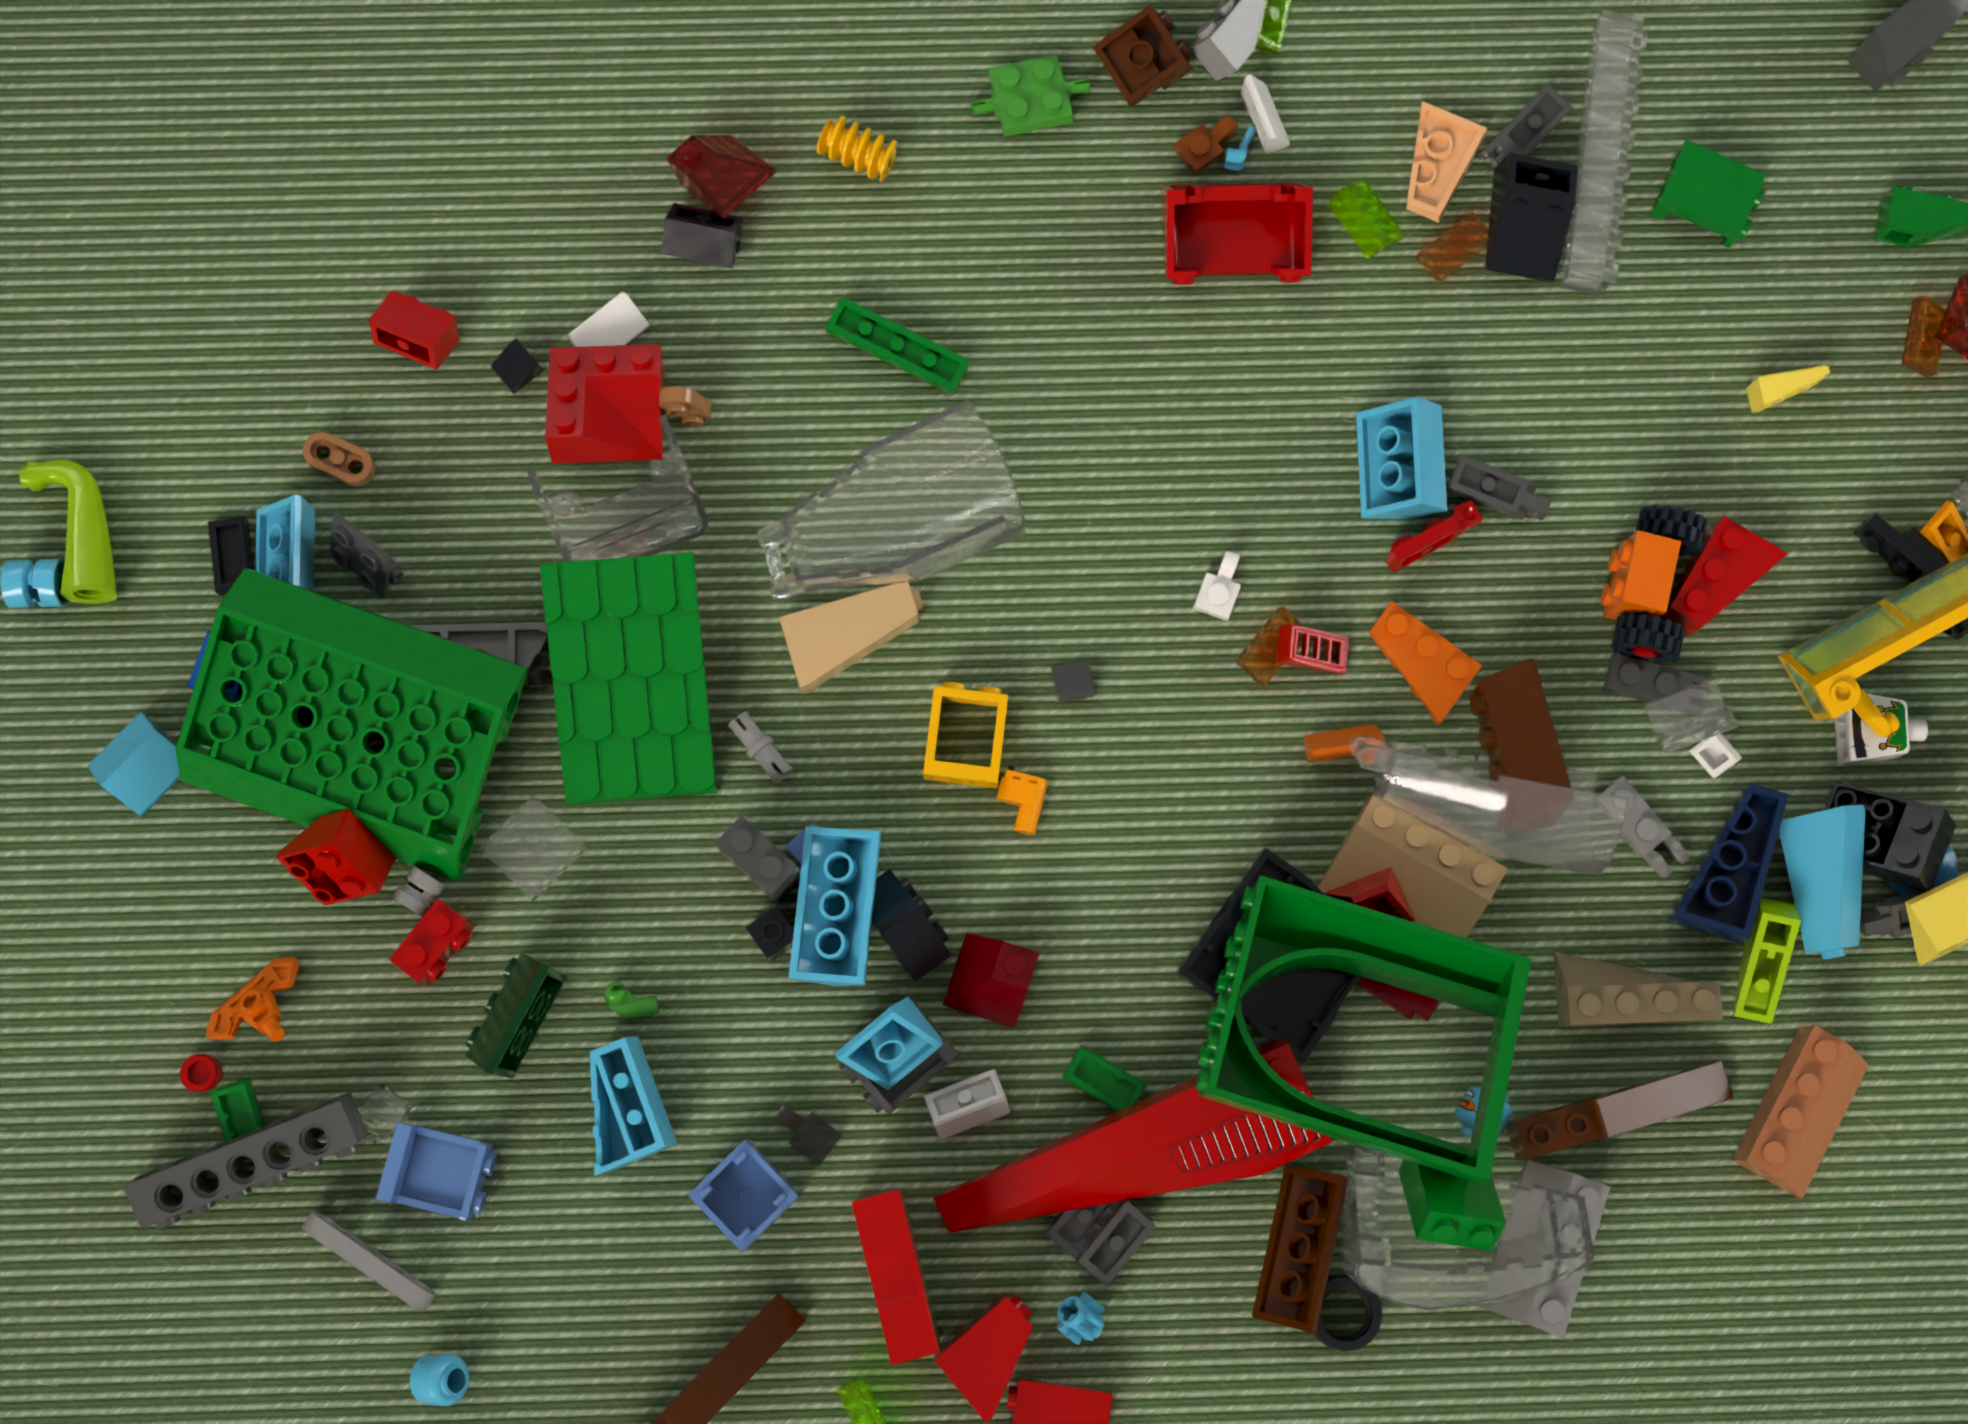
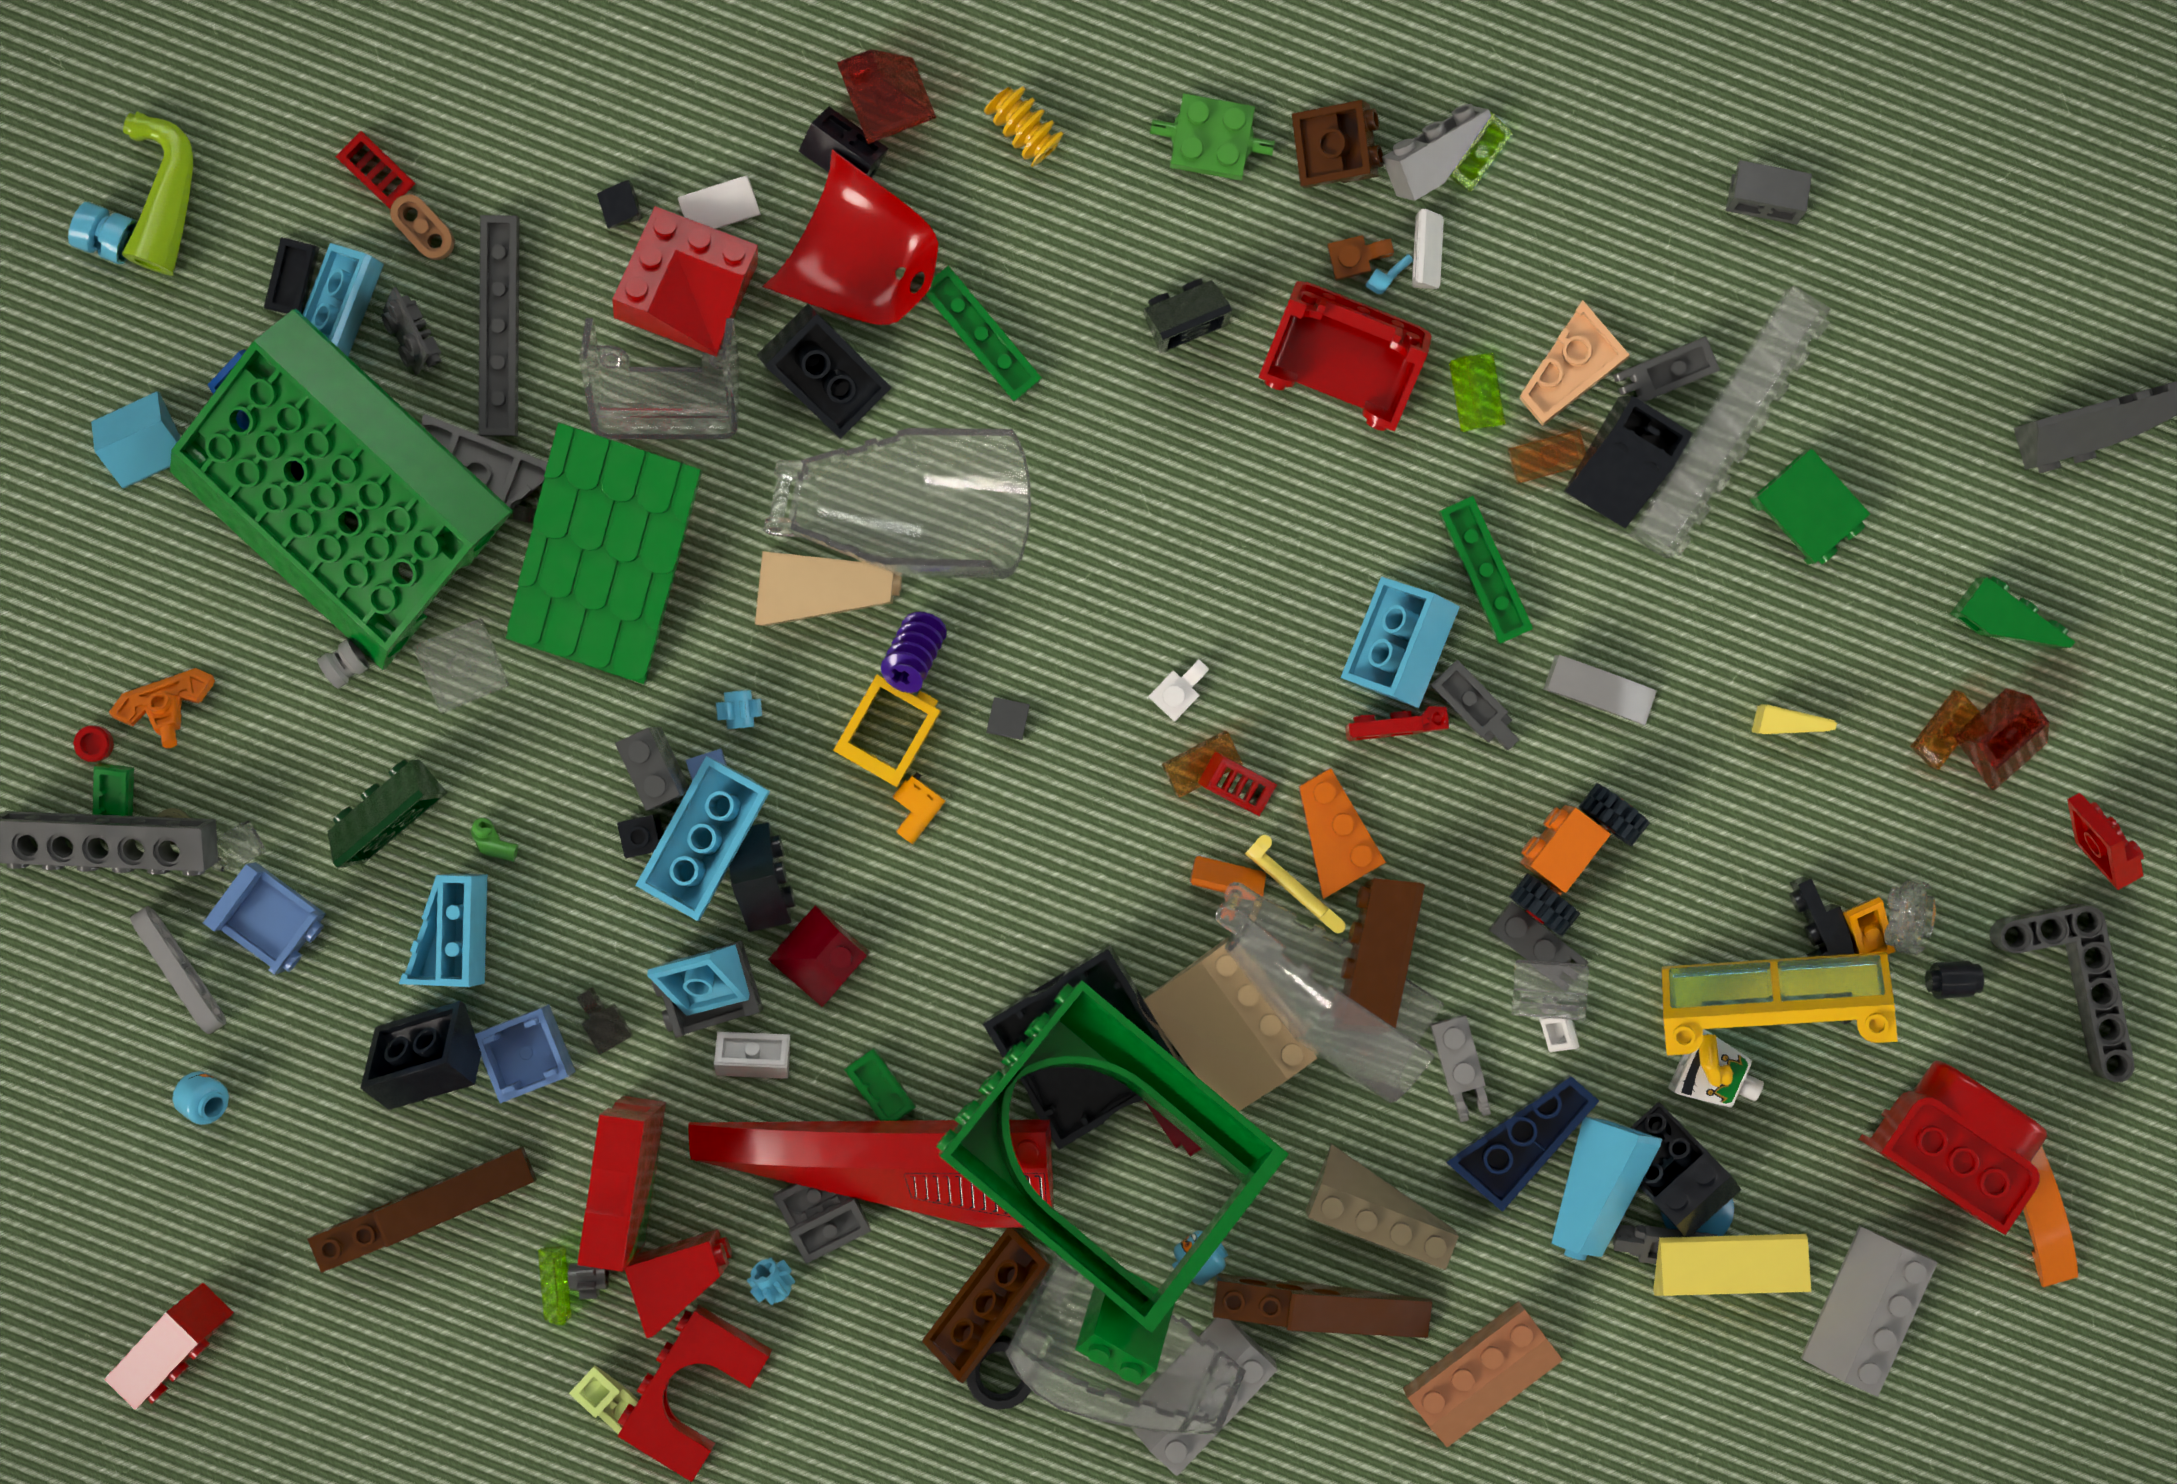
camera: 25 degrees right, 10 degrees up
(253, 404) = (353, 147): none -> red slope
(338, 858) = (281, 607): red slope -> none
(414, 329) = (538, 131): red brick -> none
(433, 943) = (337, 716): red brick -> none
(446, 519) = (499, 325): none -> dark grey plate
(646, 1239) = (422, 1057): none -> black slope
(685, 405) = (757, 314): medium nougat plate -> none
(751, 311) = (855, 248): none -> red piece
(760, 747) = (700, 660): light grey pin -> none
(766, 435) = (823, 371): none -> black slope
(816, 775) = (739, 709): none -> medium azure gear
(898, 1392) = (587, 1280): none -> dark grey gear
(959, 651) = (913, 651): none -> dark purple piece
(1080, 250) = (1187, 315): none -> black slope
(1376, 892) = (1189, 1033): red slope -> none
(1448, 366) = (1485, 570): none -> green plate
(1453, 738) = (1290, 884): none -> light yellow hinge
(1599, 428) = (1599, 689): none -> light grey slope
(1717, 575) = (1640, 873): red wedge -> none
(1766, 960) = (1514, 1231): lime slope -> none

